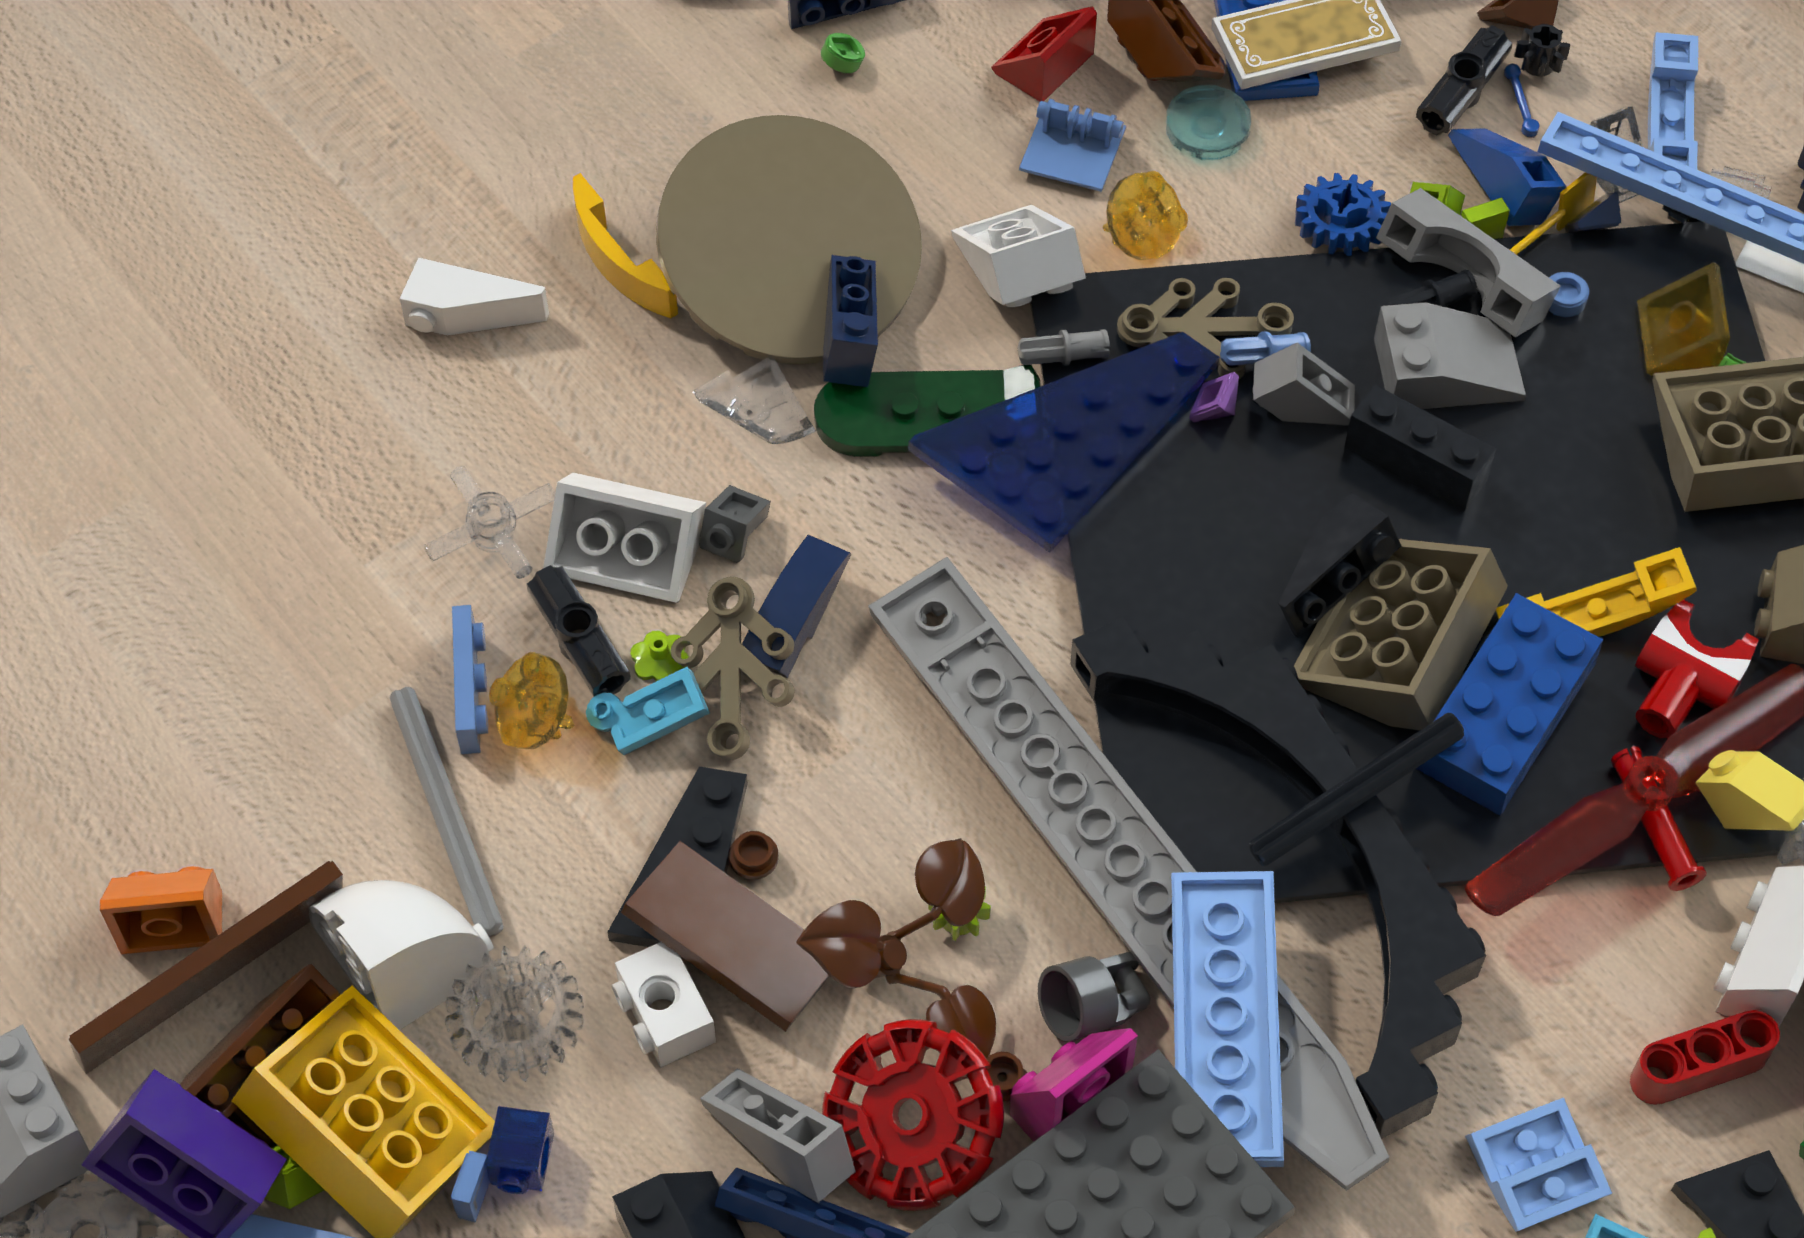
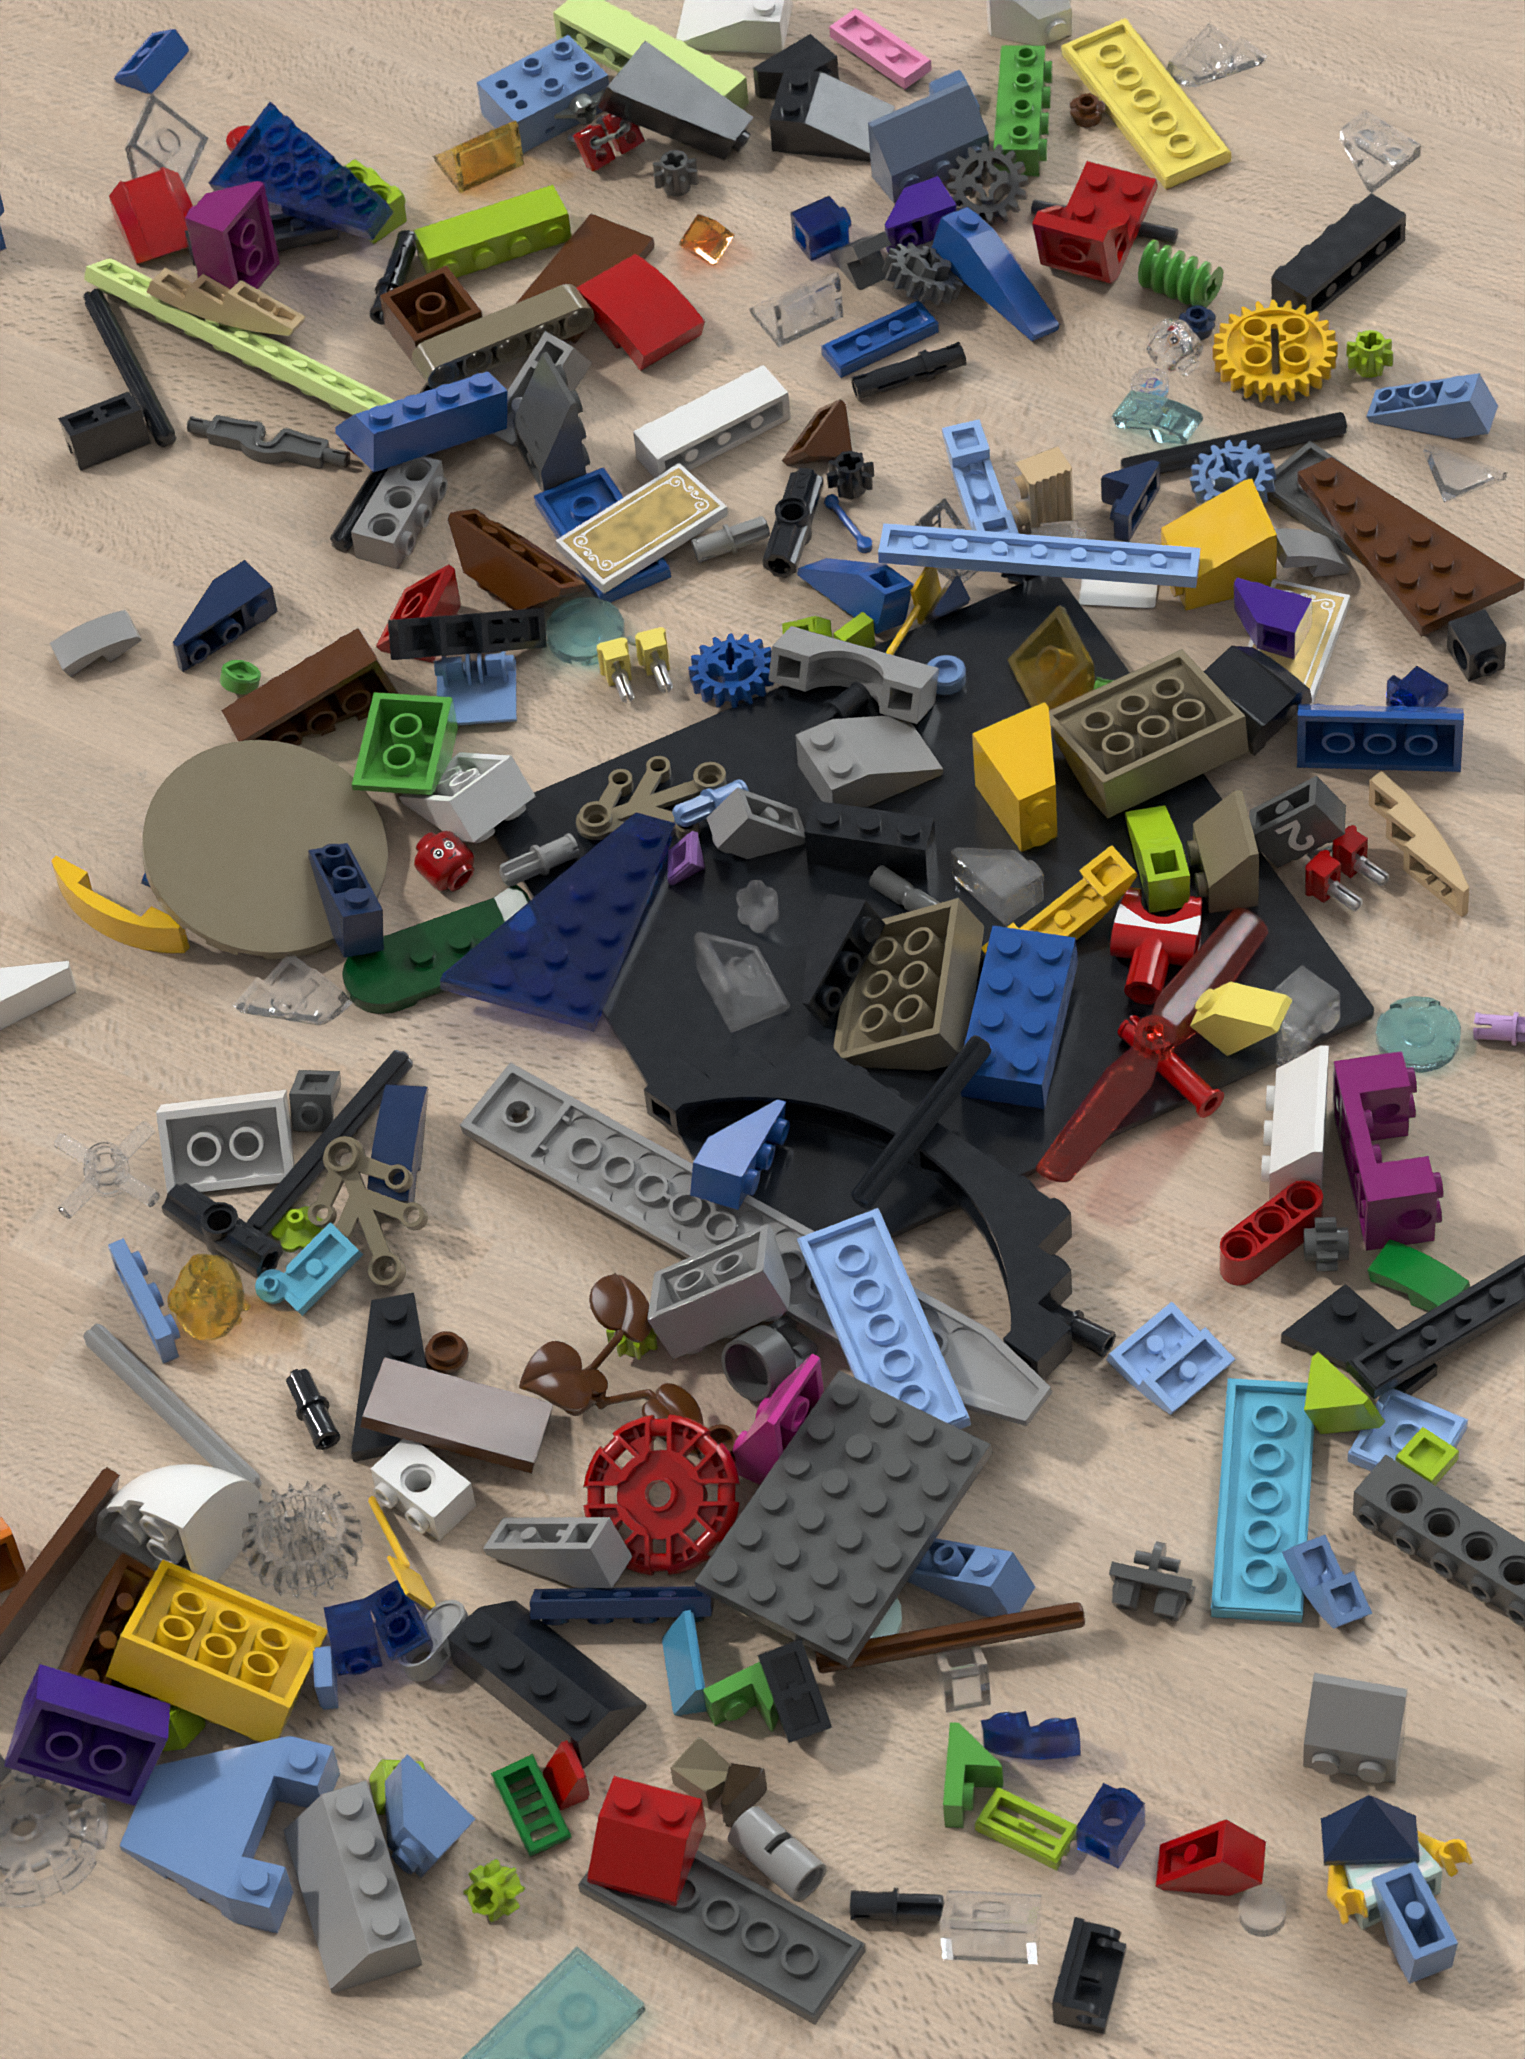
camera: 15 degrees left, 5 degrees down
(577, 1148) = (398, 1620): none -> clear blue slope
(588, 866) = (312, 1409): none -> black axle
(603, 1178) = (441, 1622): none -> light grey piece
(605, 1106) = (410, 1581): none -> yellow piece
(744, 566) = (345, 1124): none -> black axle
(907, 96) = (312, 694): none -> reddish brown wedge
(967, 313) = (444, 861): none -> red head
(976, 178) = (406, 744): none -> bright green slope
(1065, 901) = (719, 1292): none -> light grey slope
(1083, 84) = (467, 633): none -> black slope
(1139, 752) = (735, 1156): none -> blue slope
(1157, 204) = (555, 740): clear yellow plate -> none
(1222, 552) = (738, 980): none -> clear slope
(1267, 168) = (651, 653): none -> light yellow piece
(1272, 477) = (757, 906): none -> clear plant
(1393, 75) = (730, 538): none -> light grey axle
(1432, 514) = (899, 890): none -> dark grey piece
(1453, 1094) = (1087, 1332): none -> black axle
(1542, 540) = (999, 880): none -> clear slope
(1605, 432) = (1018, 775): none -> yellow slope
(1726, 577) = (1159, 858): none -> lime slope
(1740, 131) = (1043, 489): none -> tan brick
(1763, 1095) = (1326, 1244): none -> dark grey gear

